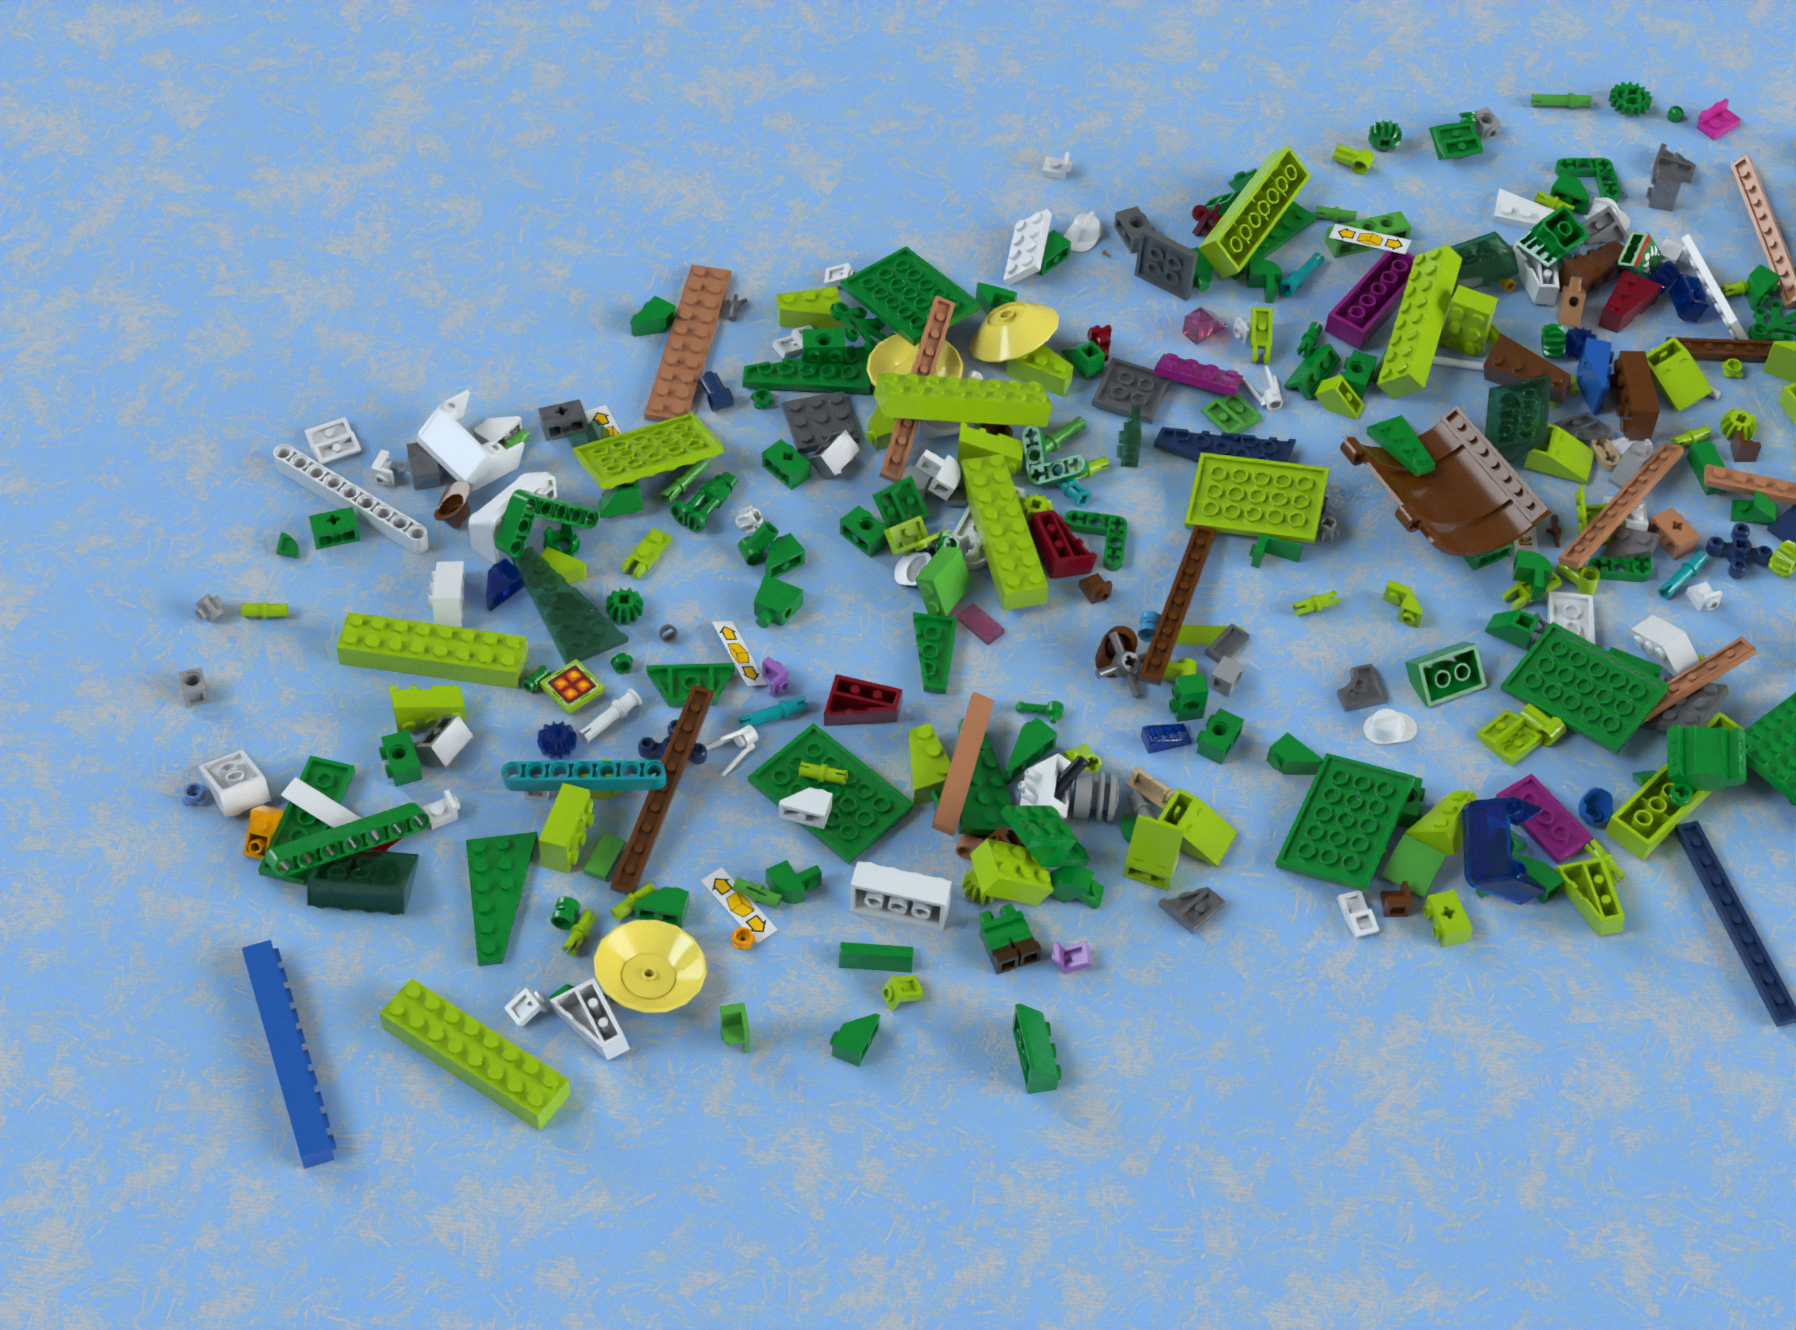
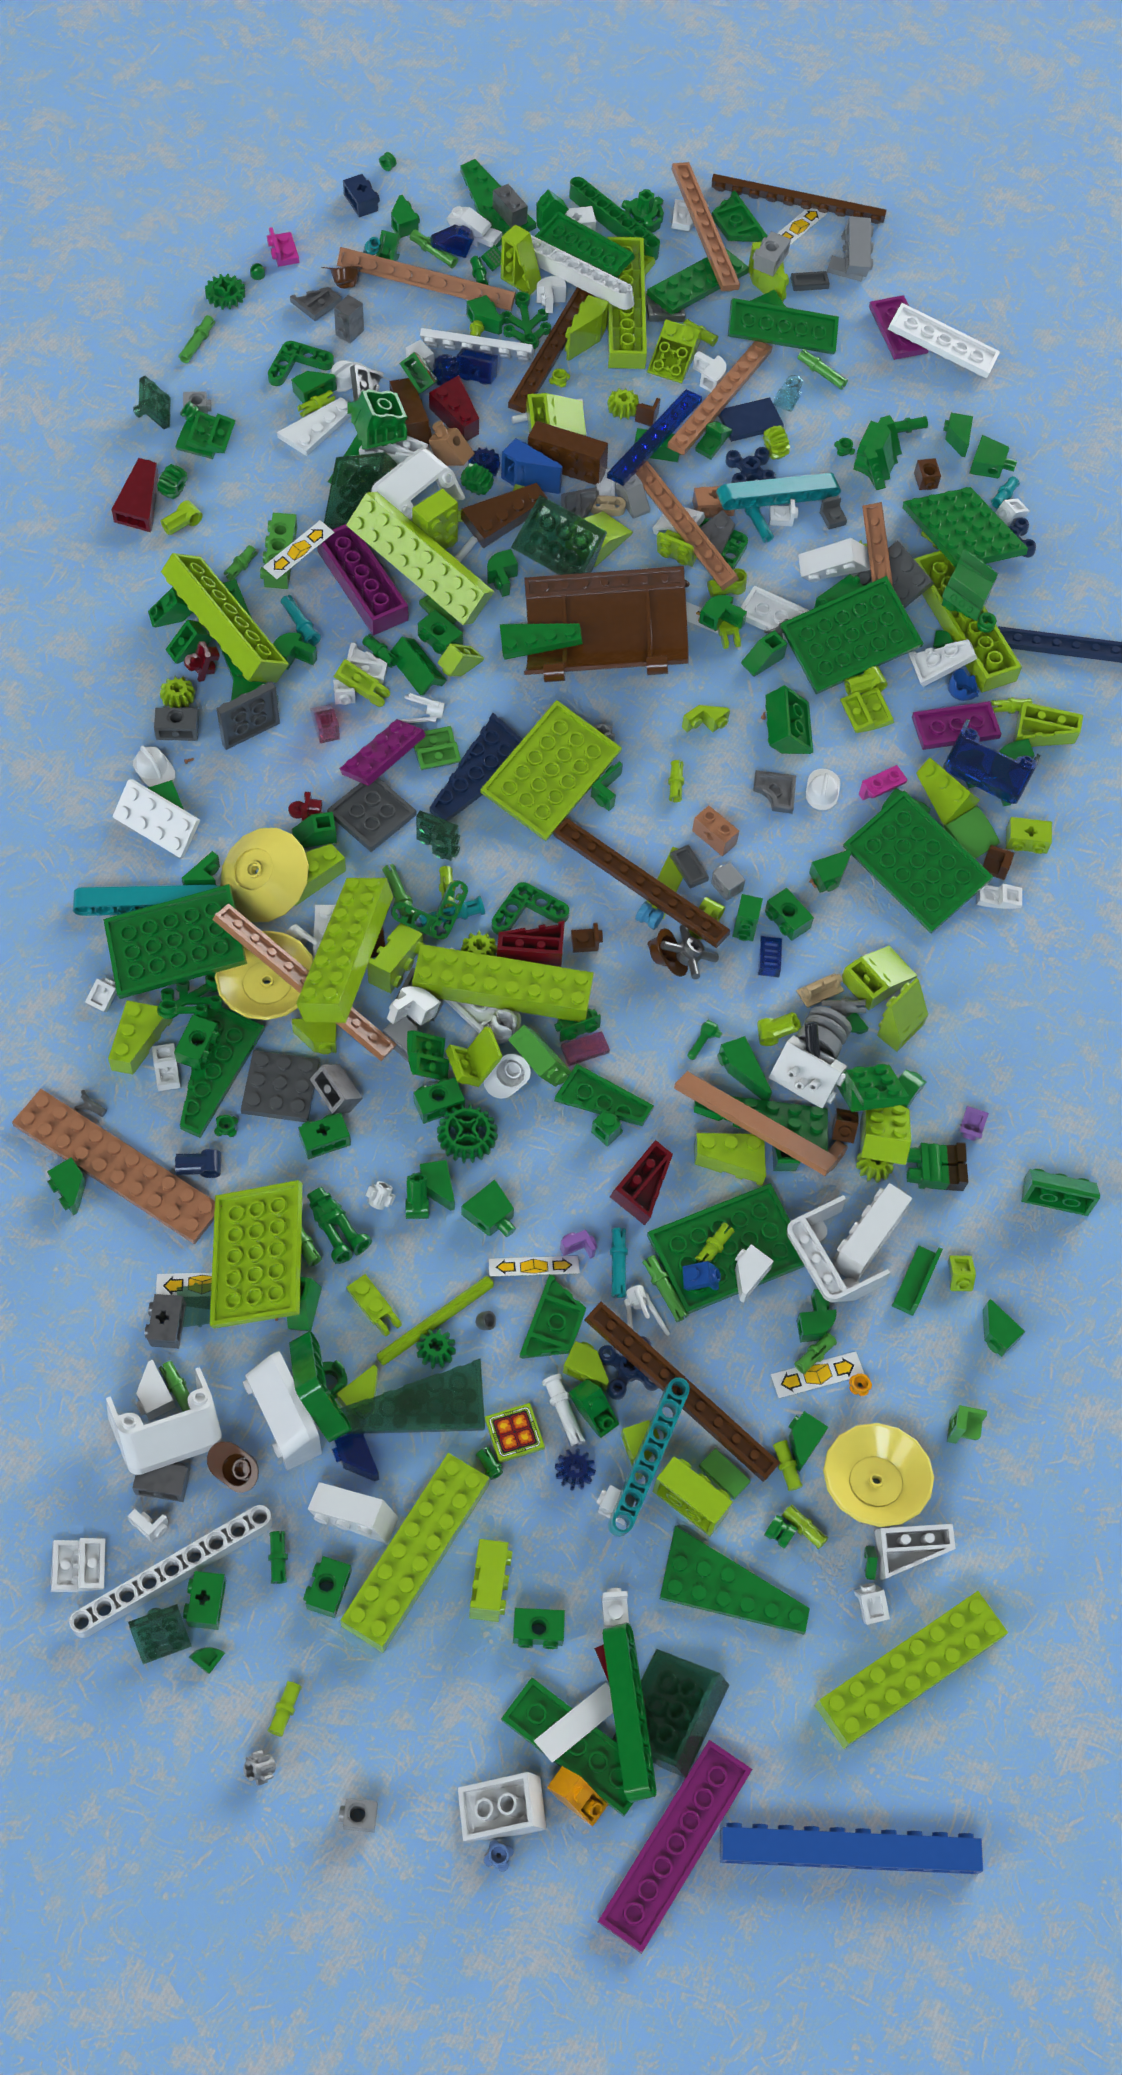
camera: 70 degrees left, 10 degrees up
(247, 917) = (674, 1846): none -> magenta plate
(297, 506) = (157, 1629): none -> clear green plate
(379, 600) = (327, 1602): none -> green brick
(390, 562) = (277, 1557): none -> green pin
(444, 741) = (539, 1577): brick -> none
(621, 735) = (594, 1407): none -> green slope
(622, 663) = (503, 1376): green plate -> none
(655, 600) = (435, 1320): none -> lime axle
(659, 714) = (585, 1364): none -> lime slope
(770, 749) = (665, 1288): none -> bright green pin
(786, 773) = (701, 1276): none -> blue bracket
(842, 561) = (467, 1121): none -> green gear
(864, 842) = (806, 1234): none -> white windscreen
(903, 660) = (609, 1125): none -> green brick
(936, 254) = (120, 900): none -> teal beam
(946, 538) = (502, 1034): green plate -> none
(991, 604) = (570, 1029): none -> green hinge
(1057, 167) = (57, 751): white bracket -> none
(1166, 219) = (177, 693): none -> lime gear
(1193, 908) = (954, 1011): flat silver wing -> none
(1276, 648) = (715, 830): none -> nougat brick
(1286, 334) = (368, 663): none -> white wing
(1353, 122) = (138, 497): none -> dark red slope
(1424, 767) = (882, 783): none -> dark pink bracket
(1456, 95) = (153, 403): none -> clear green plate
(1465, 393) = (501, 568): none -> green brick
(1503, 280) = (413, 477): none -> white windscreen
(1610, 776) = (938, 662): none -> white wing
(1691, 436) = (619, 440): lime pin -> none
(1706, 453) = (654, 437): none -> clear blue tile
(1719, 171) = (345, 276): none -> reddish brown piece
(1722, 576) = (777, 491): none -> teal beam
(1741, 629) = (832, 512): none -> dark grey bracket
(1765, 175) = (372, 246): none -> teal pin
(1778, 188) = (388, 245): none -> green slope

